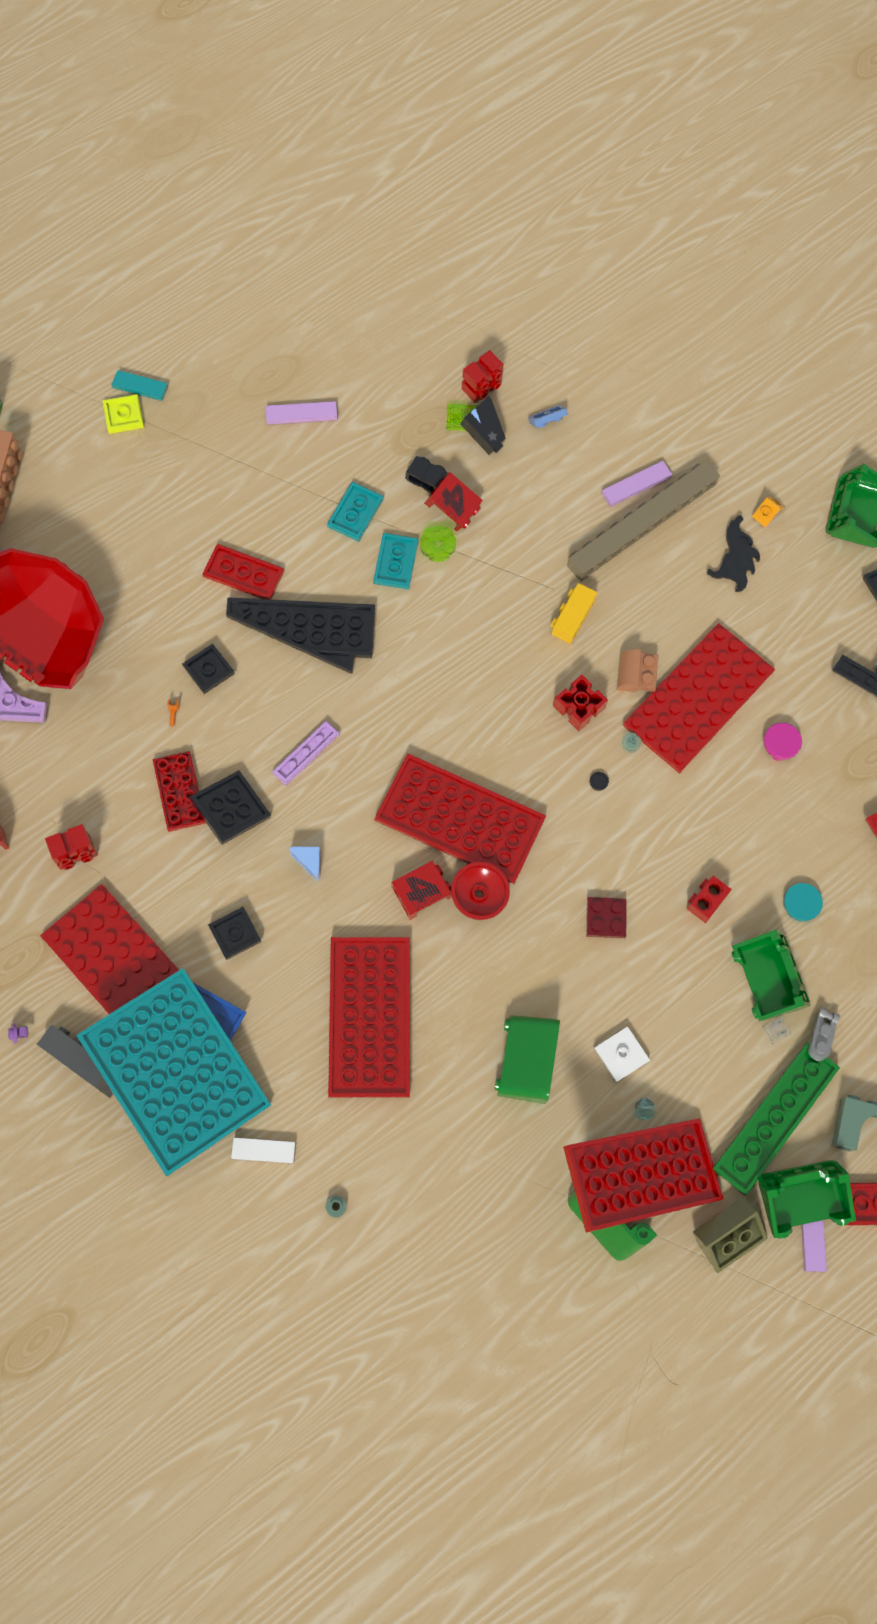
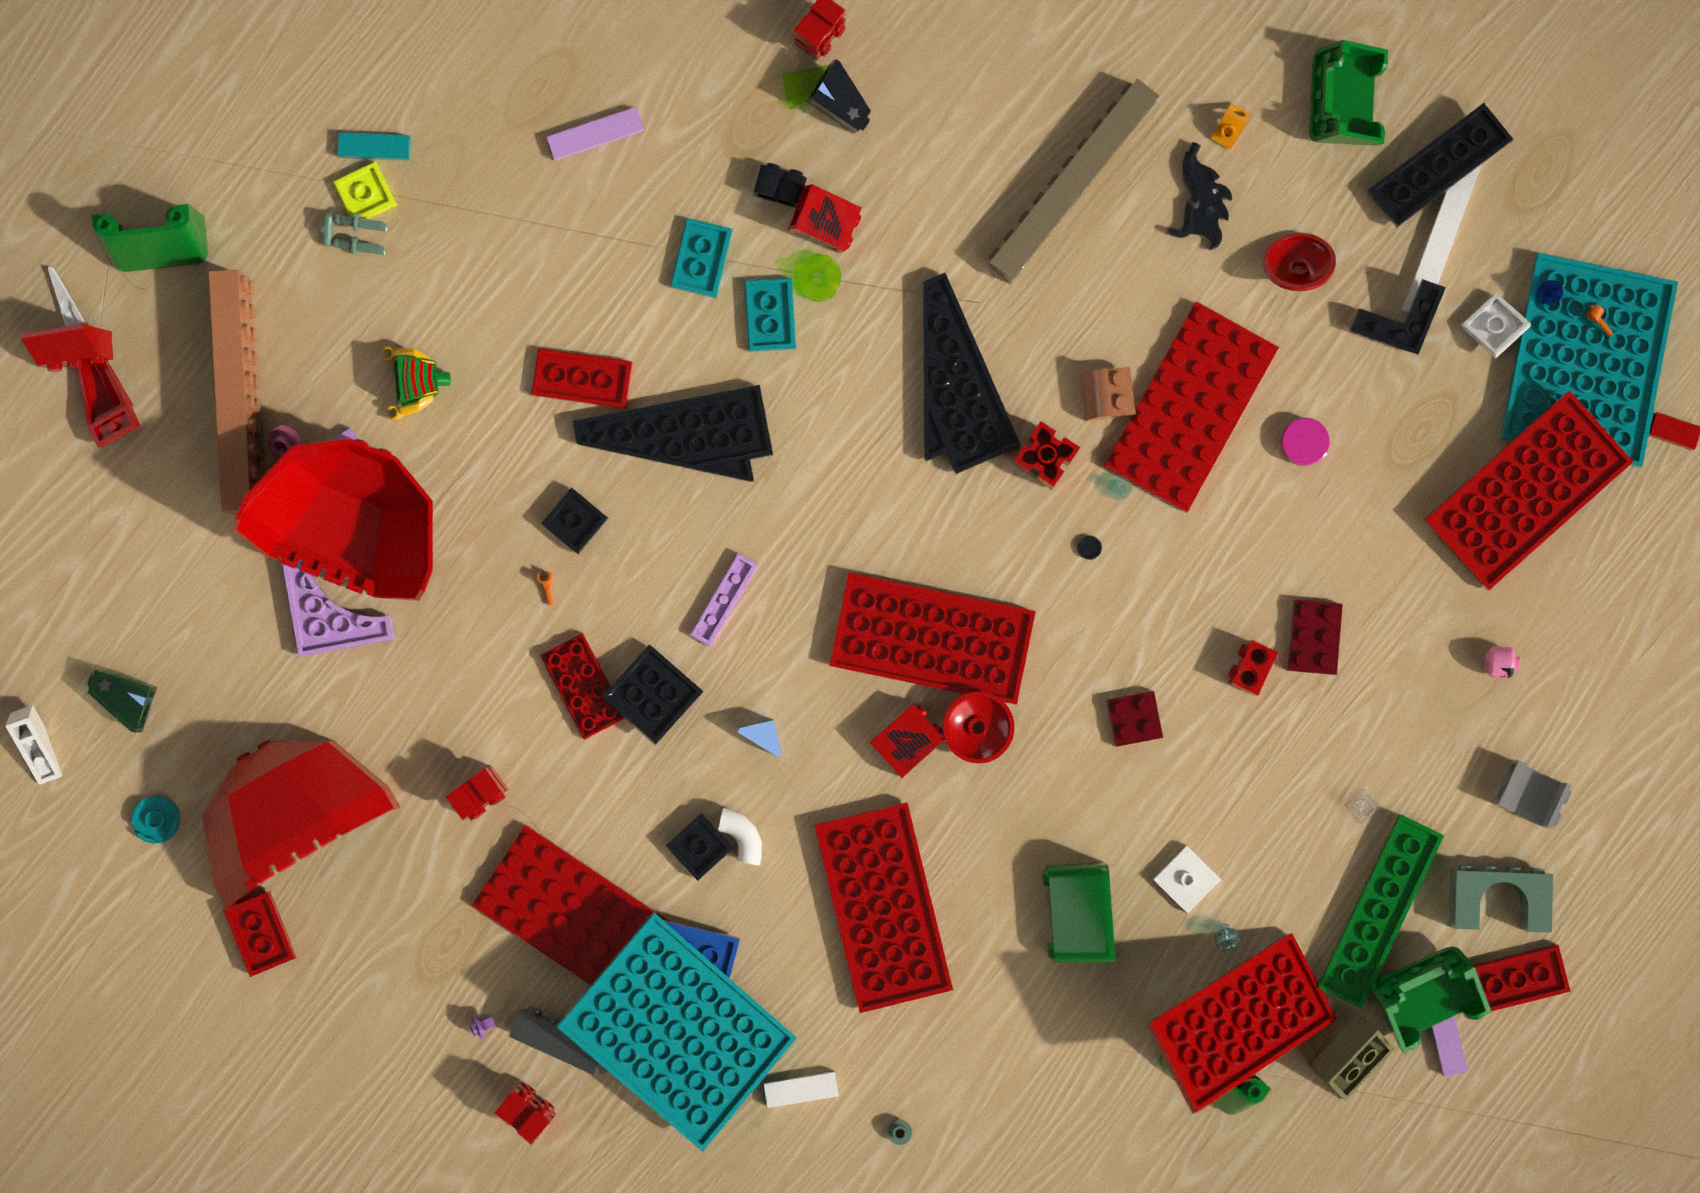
camera: 10 degrees left, 15 degrees up
(30, 1109) = (526, 1112): none -> red brick
(104, 445) = (356, 222): none -> sand green piece
(118, 543) = (415, 380): none -> torso
(273, 932) = (745, 835): none -> white cylinder
(524, 648) = (960, 397): none -> black wing
(553, 414) = (917, 60): medium blue plate -> none
(573, 613) = (1011, 333): yellow brick -> none
(636, 483) = (1053, 128): lavender tile -> none
(763, 889) = (1315, 637): none -> dark red plate
(771, 975) = (1346, 745): green windscreen -> none
(802, 611) = (1299, 262): none -> red dish
(803, 902) = (1366, 642): teal tile -> none
(822, 1034) = (1417, 800): light grey plate -> none

